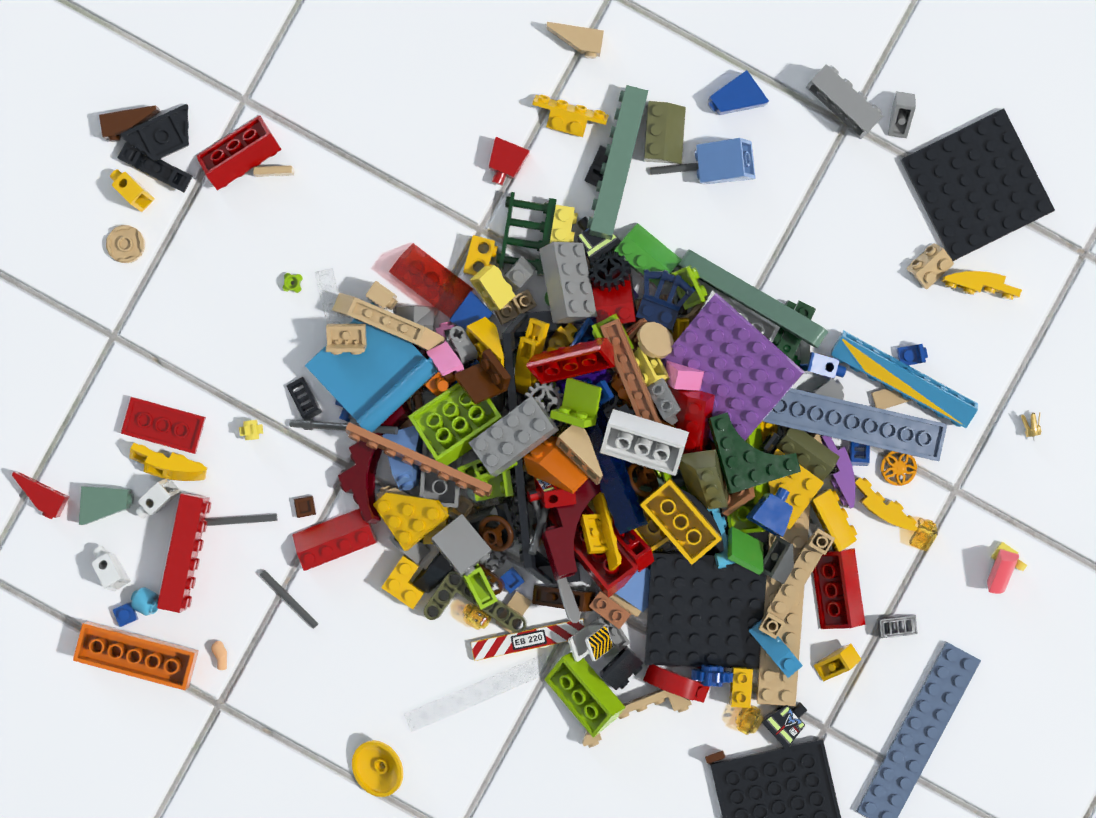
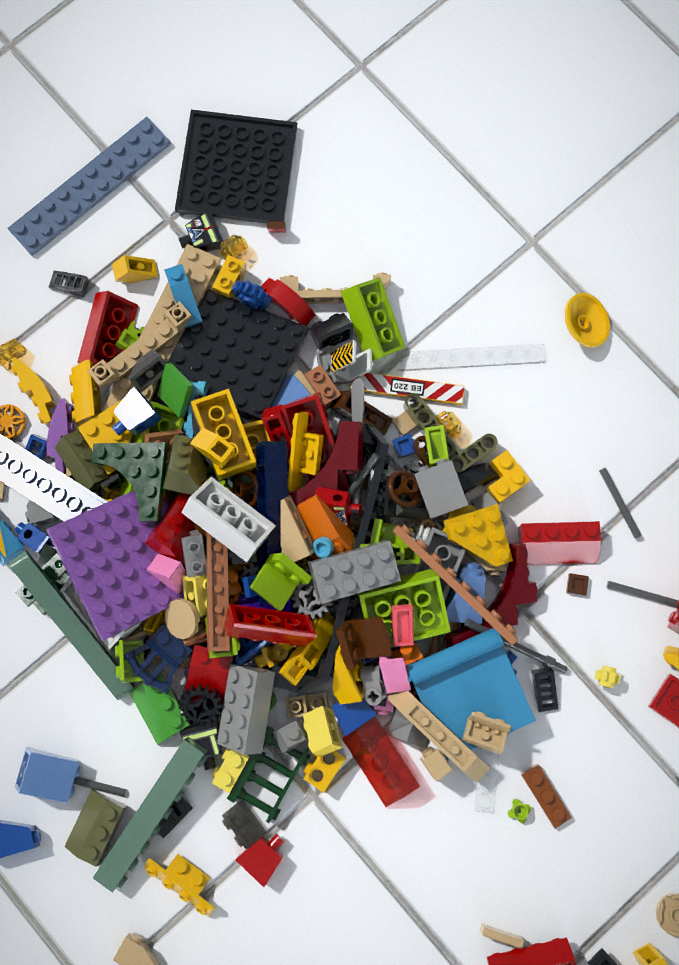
camera: 160 degrees left, 10 degrees down
(272, 304) = (546, 796): none -> dark orange plate
(453, 405) = (402, 625): none -> coral tile
(465, 500) = (422, 533): none -> white bush
(534, 183) = (243, 824): none -> clear smoke bracket
(549, 449) = (323, 547): none -> medium azure tile
(683, 502) = (213, 447): none -> yellow slope
(814, 590) = (129, 336): none -> lime plate

